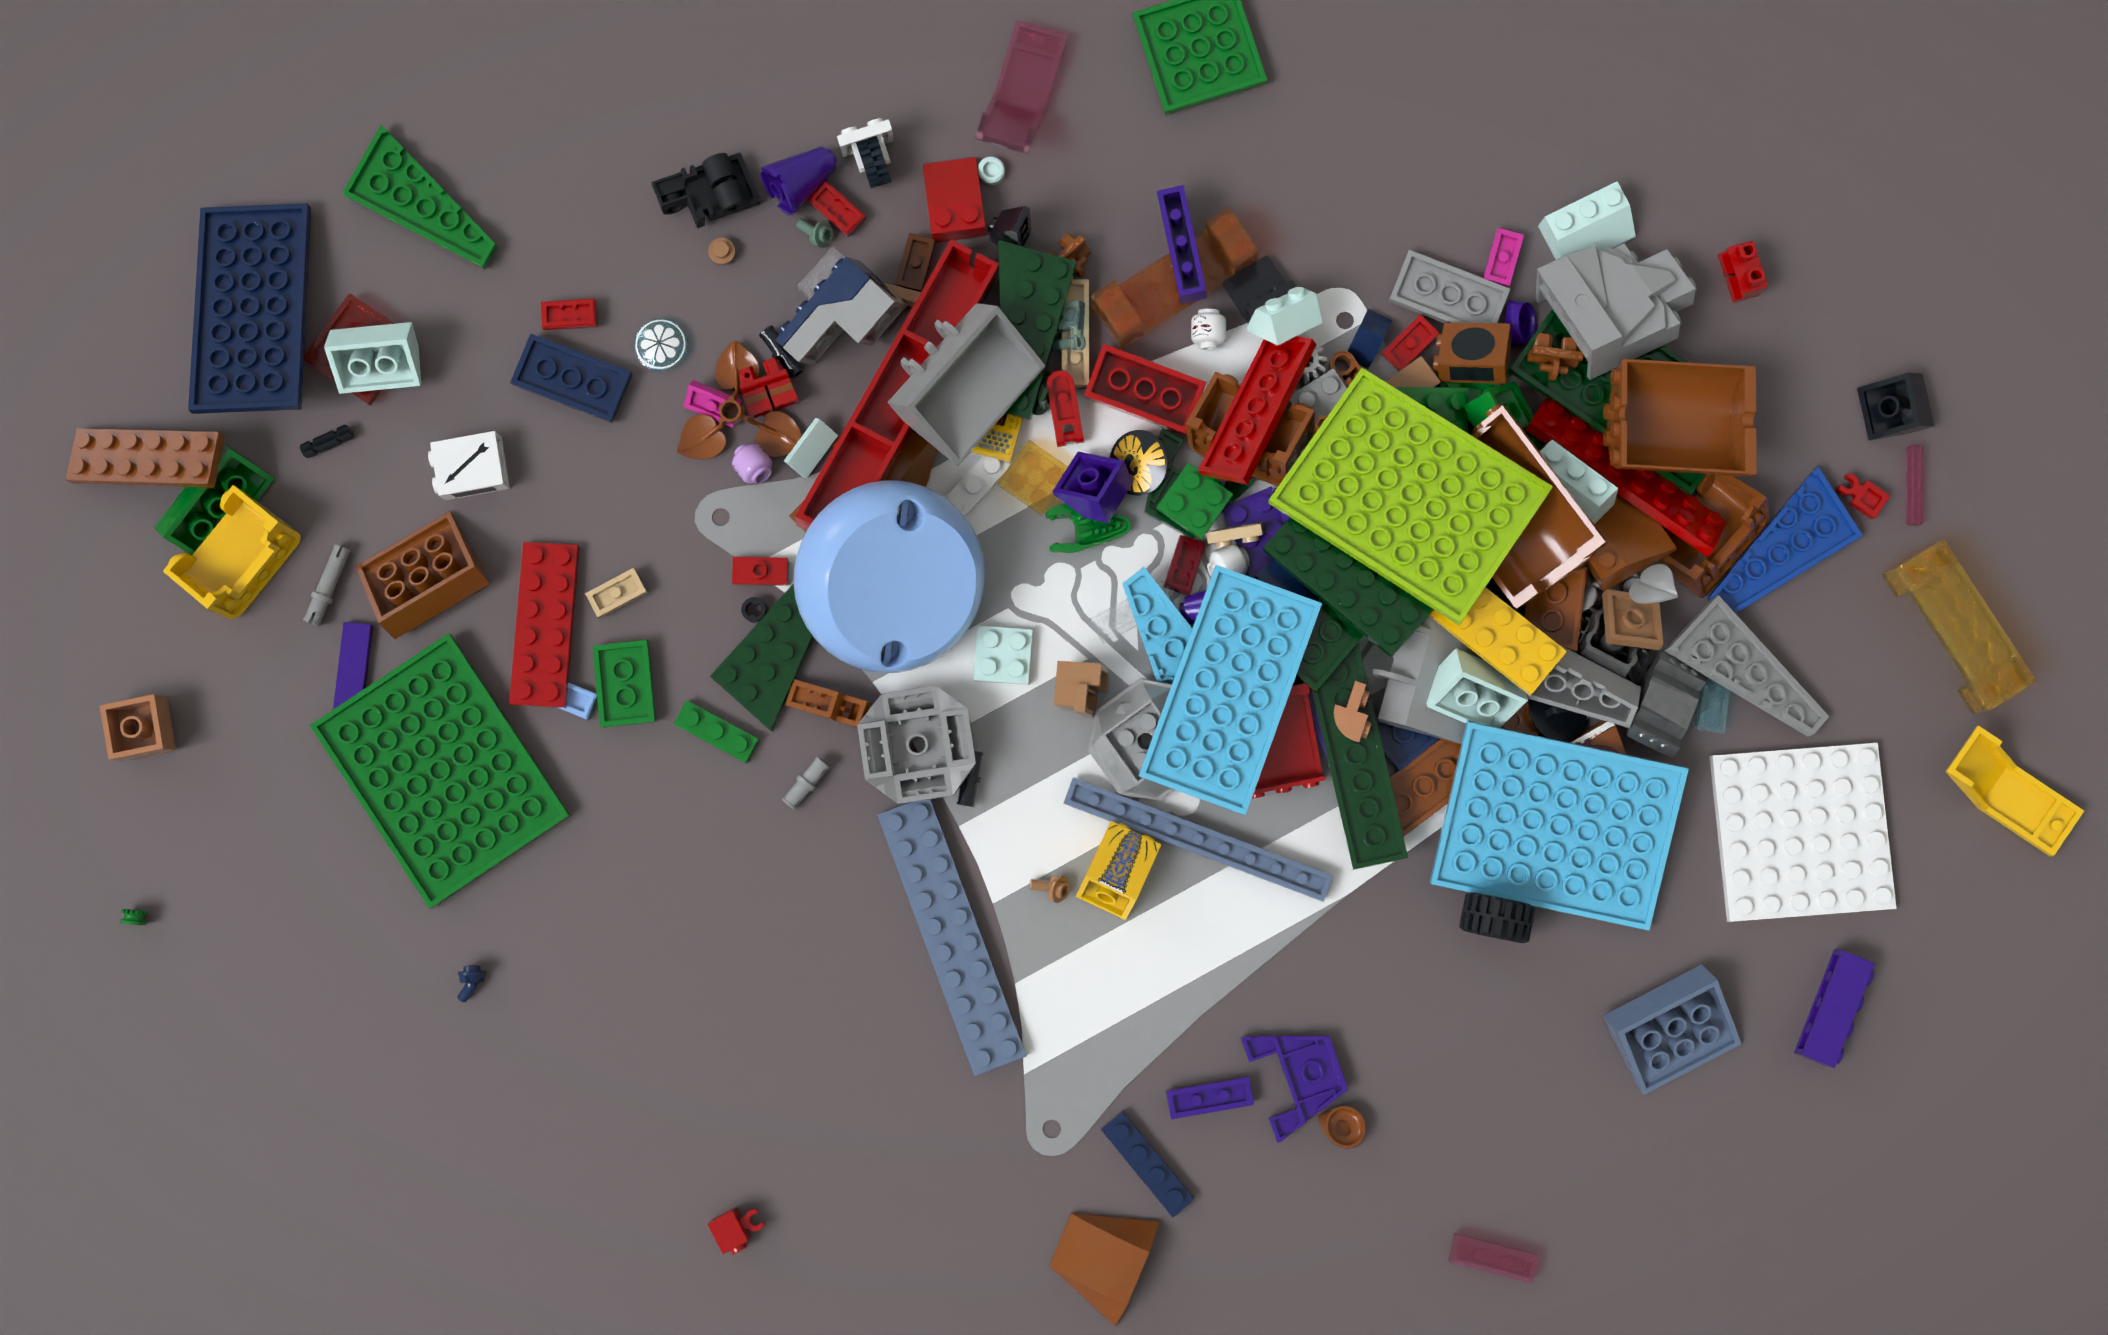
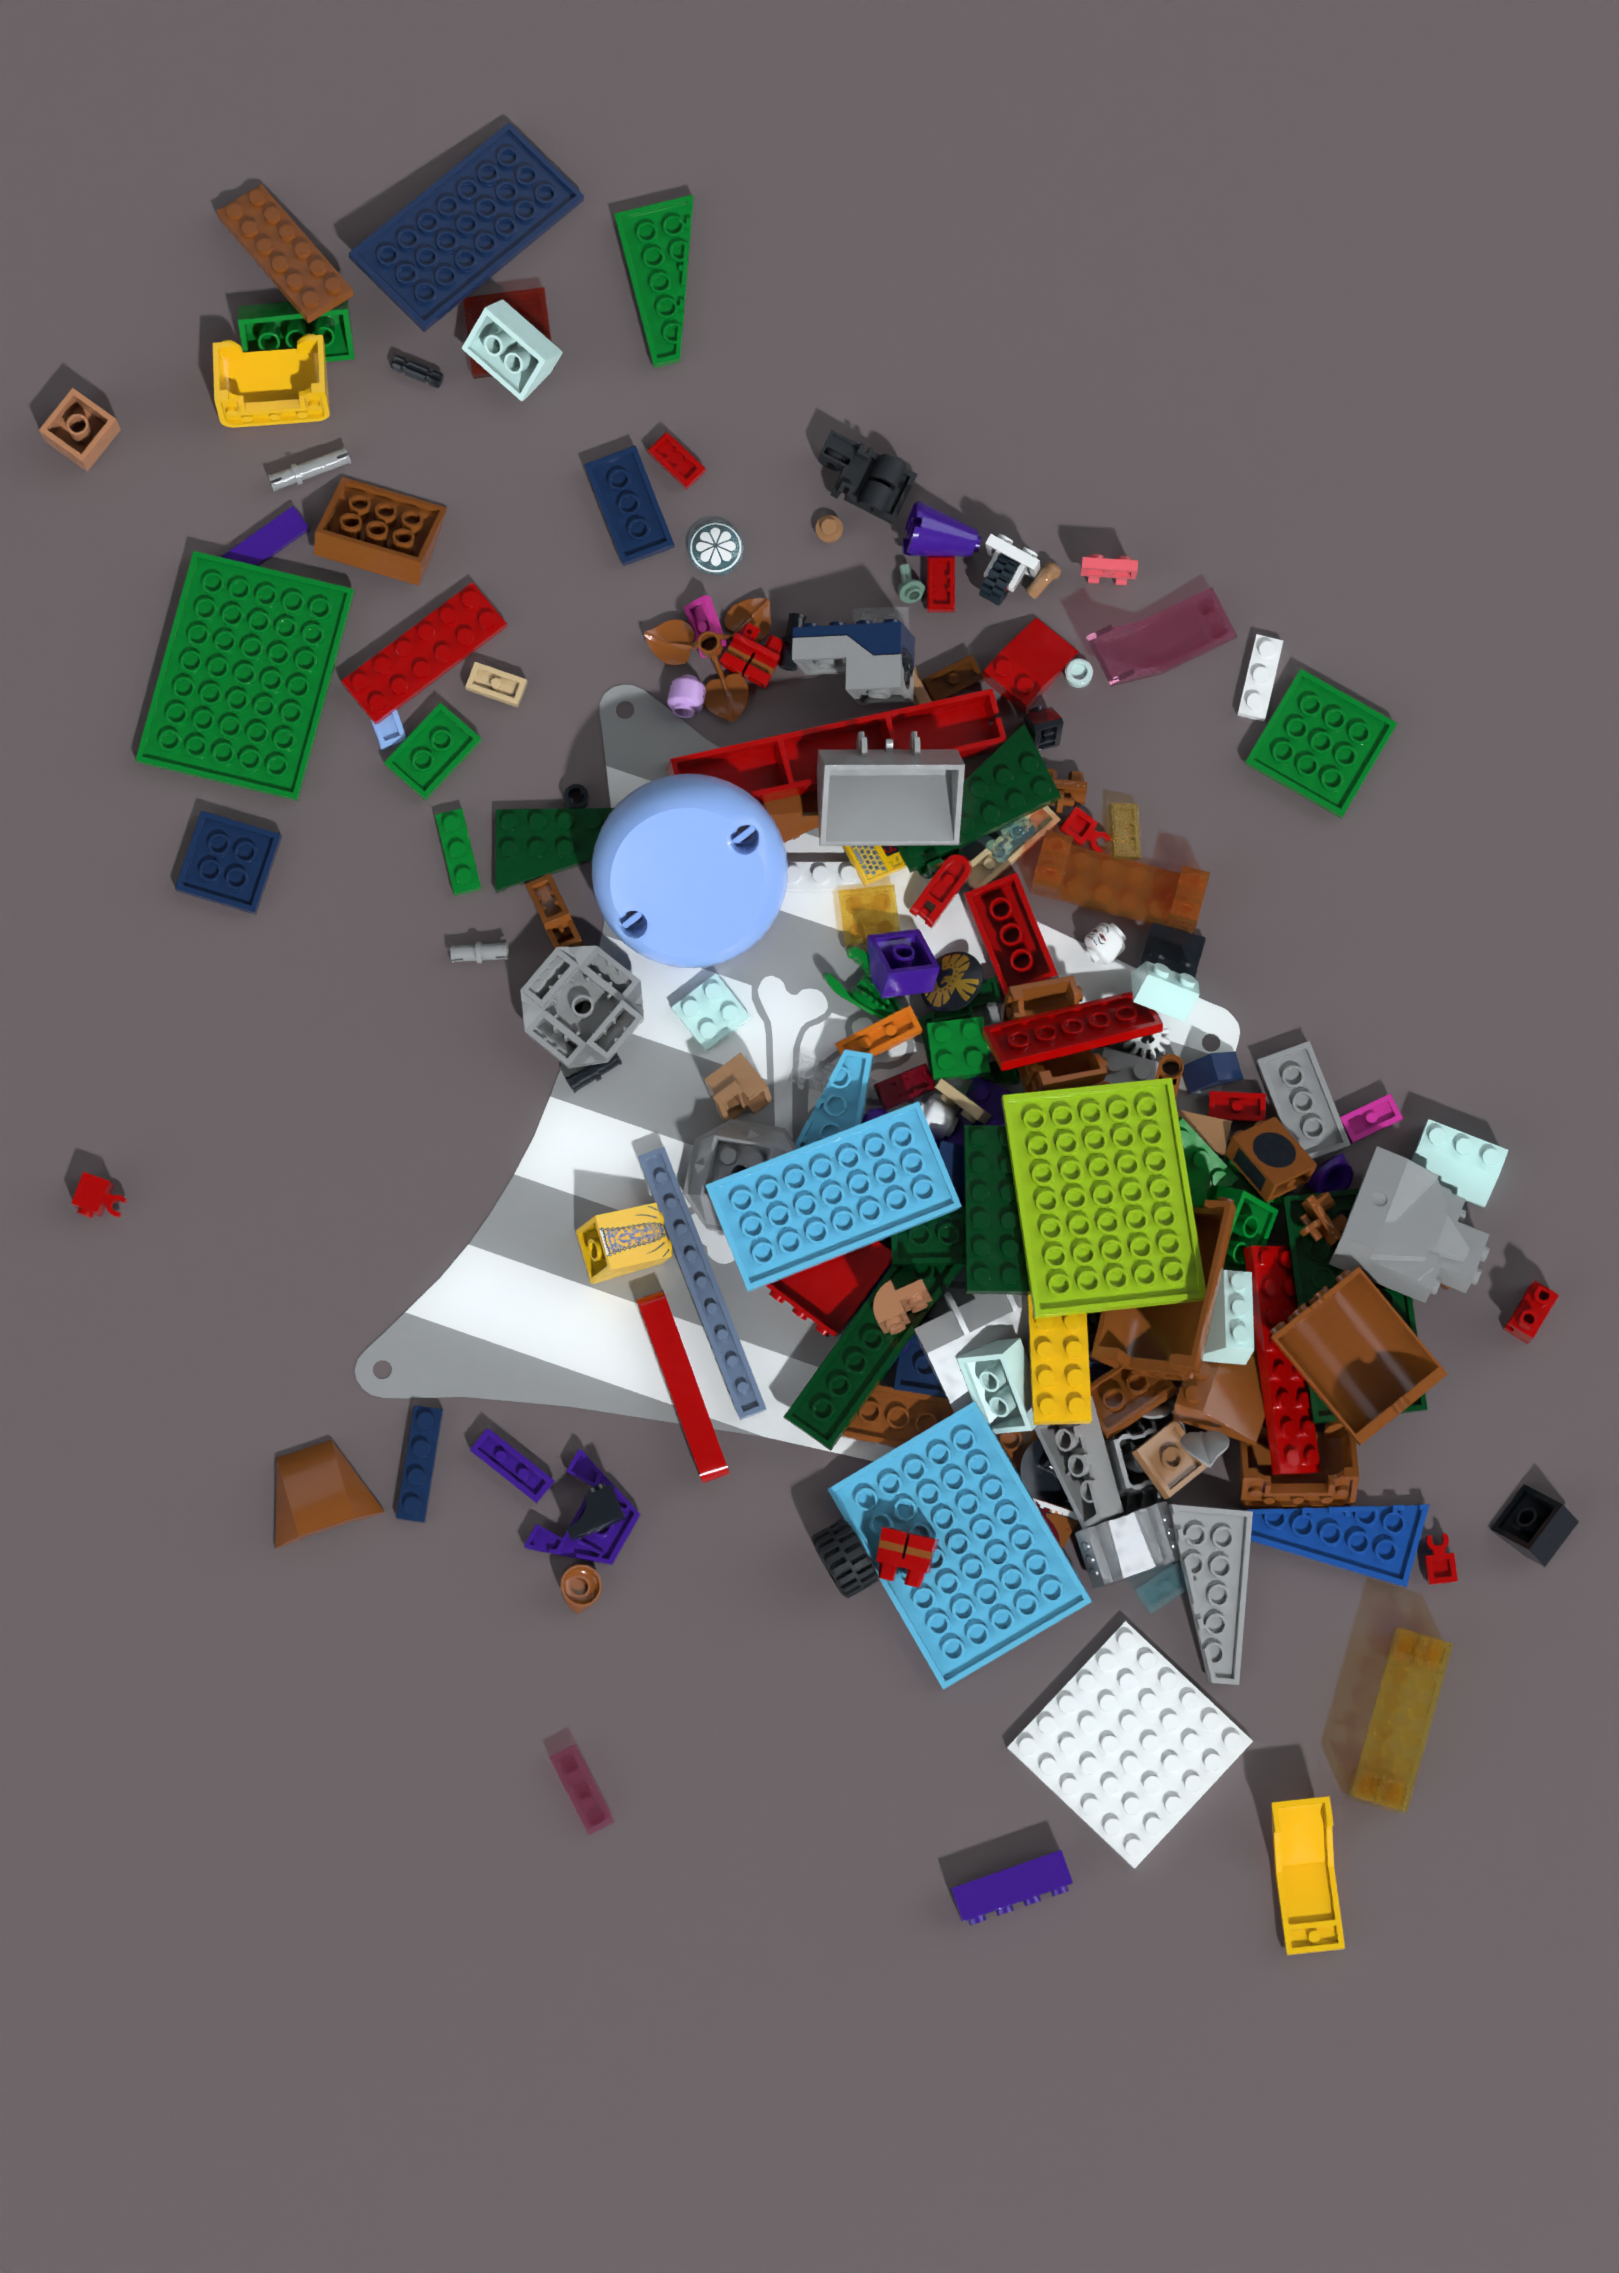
camera: 45 degrees right, 5 degrees down
(469, 465) = (493, 491): white brick -> none
(471, 976) = (112, 836): dark blue plate -> none
(570, 907) = (228, 862): none -> dark blue plate
(760, 571) = (609, 774): red plate -> none
(811, 448) = (737, 728): light aqua tile -> none
(900, 132) = (1047, 573): none -> medium nougat arm
(943, 72) = (1120, 568): none -> coral plate
(952, 936) = (461, 1164): sand blue plate -> none
(1057, 887) = (569, 1210): medium nougat plate -> none
(1106, 269) = (1082, 828): none -> red plate
(1111, 48) = (1260, 678): none -> white plate
(1132, 547) = (883, 1034): none -> orange plate
(1138, 242) = (1124, 831): none -> clear yellow plate
(1182, 244) = (1148, 863): dark purple brick -> none
(1262, 921) = (683, 1386): none -> red beam
(1306, 1066) = (600, 1512): none -> black arch
(1545, 865) = (905, 1550): none -> red hips
(1673, 1029) = (882, 1775): sand blue slope -> none
(1914, 485) = (1486, 1595): clear pink axle -> none

